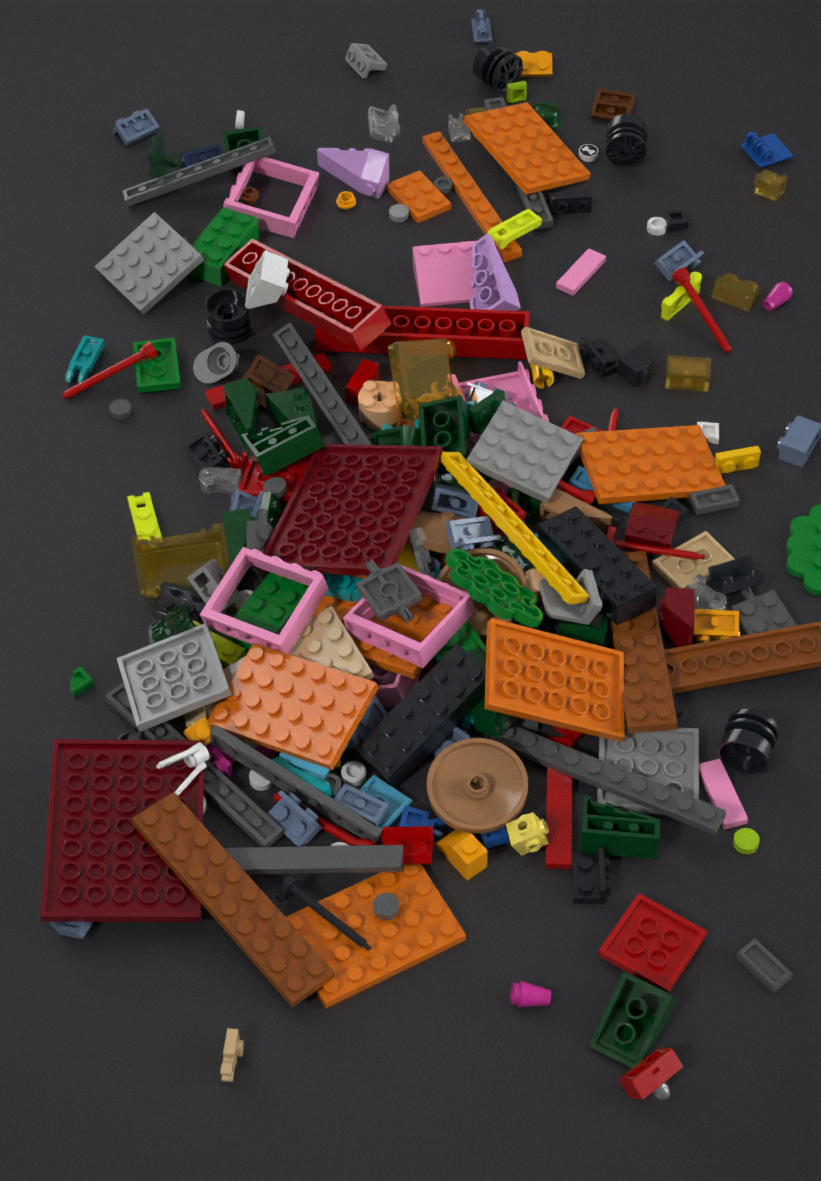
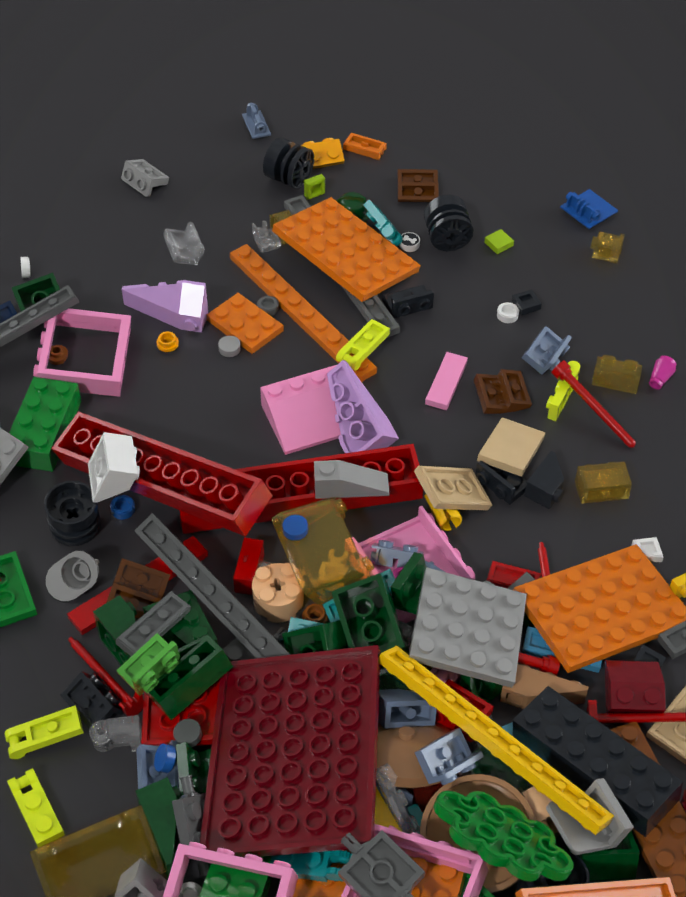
camera: 15 degrees left, 0 degrees up
(163, 468) = (43, 732): none -> neon yellow plate
(253, 501) = (165, 758): none -> blue tile
(256, 427) = (150, 664): none -> bright green bracket
(268, 403) = (156, 620): none -> dark grey tile
(271, 322) = (122, 507): none -> blue tile
(404, 353) = (295, 527): none -> blue tile
(461, 327) = (345, 480): none -> light grey slope
(568, 132) = (383, 224): none -> teal hinge
(576, 64) = (364, 146): none -> orange tile
(617, 331) = (511, 446): none -> tan tile
(627, 290) = (502, 392): none -> reddish brown slope
(671, 165) = (499, 241): none -> lime tile

